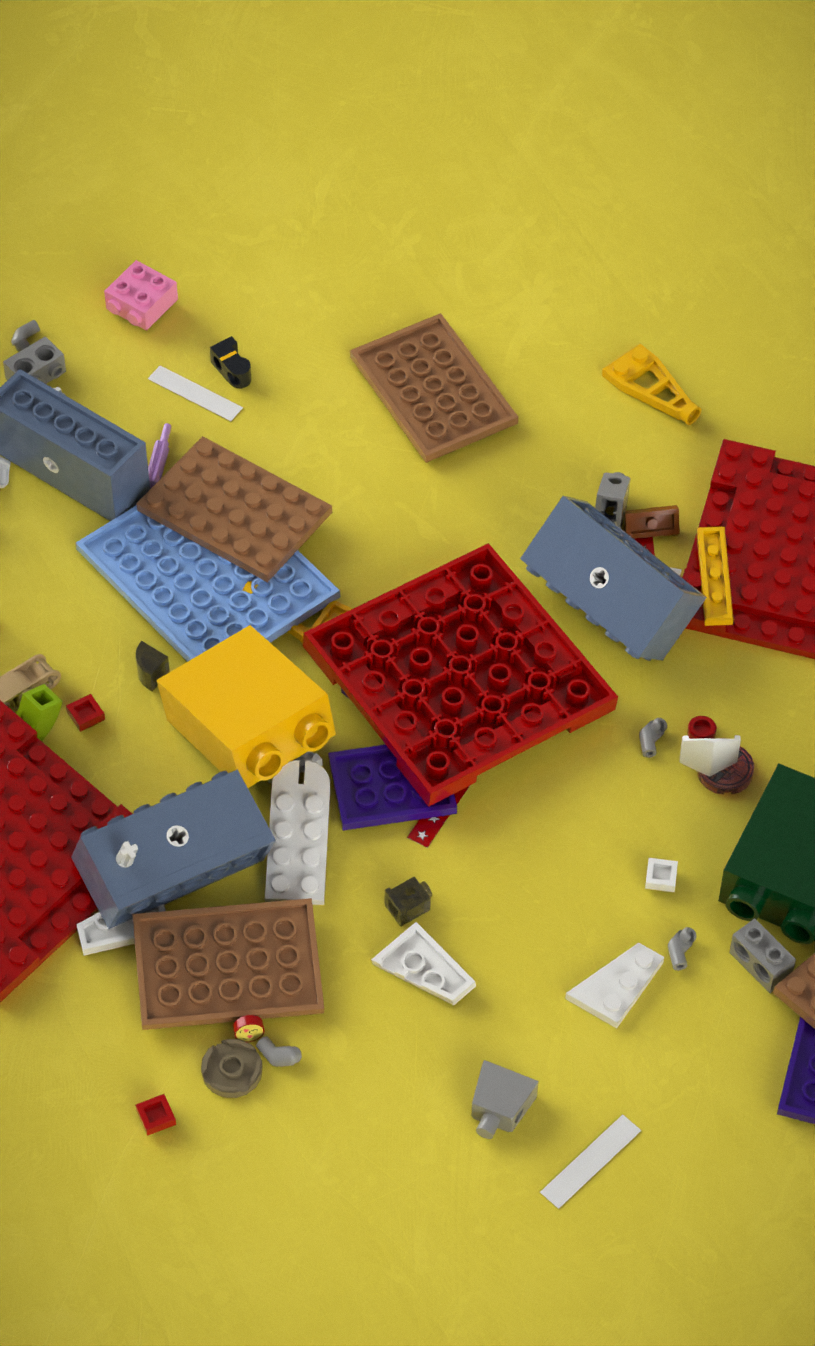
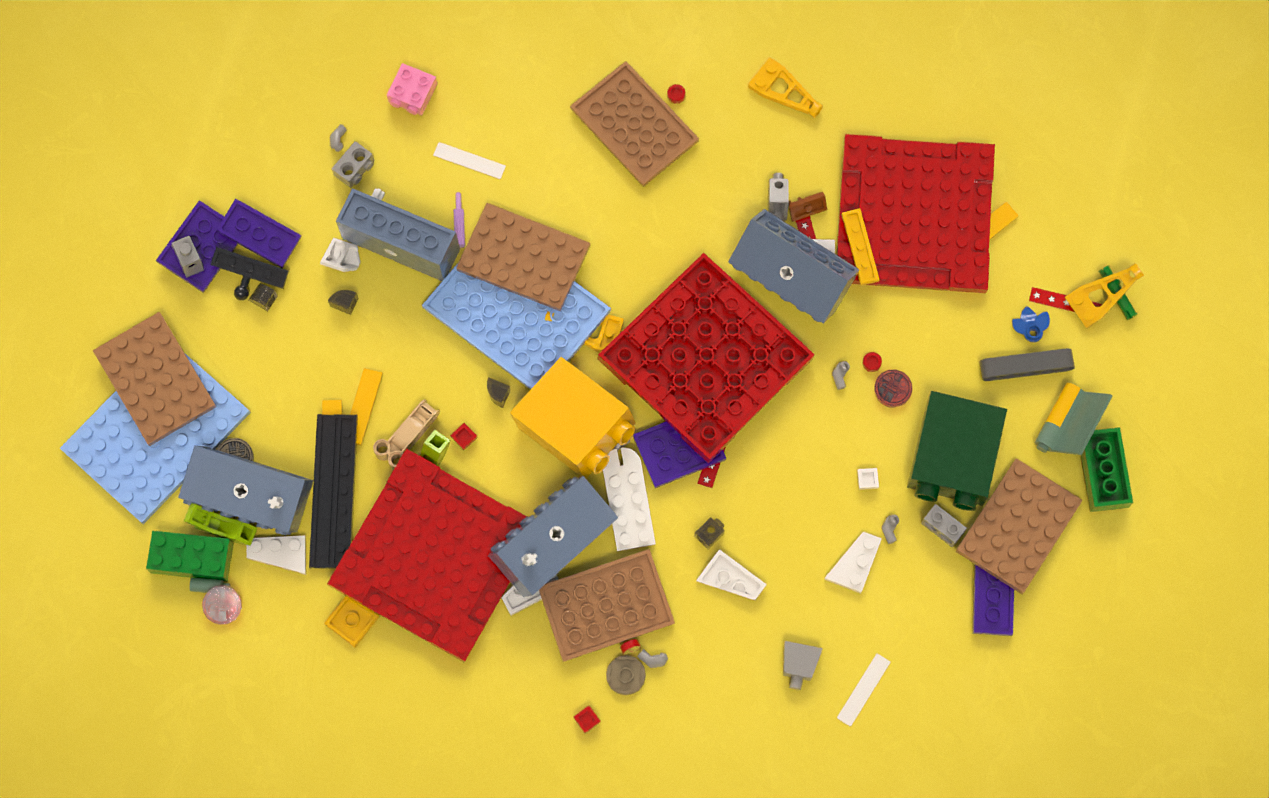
camera: 10 degrees left, 20 degrees up
(230, 364) = (490, 135): black leg -> none
(500, 365) = (676, 94): none -> red tile
(709, 754) = (882, 387): white slope -> none

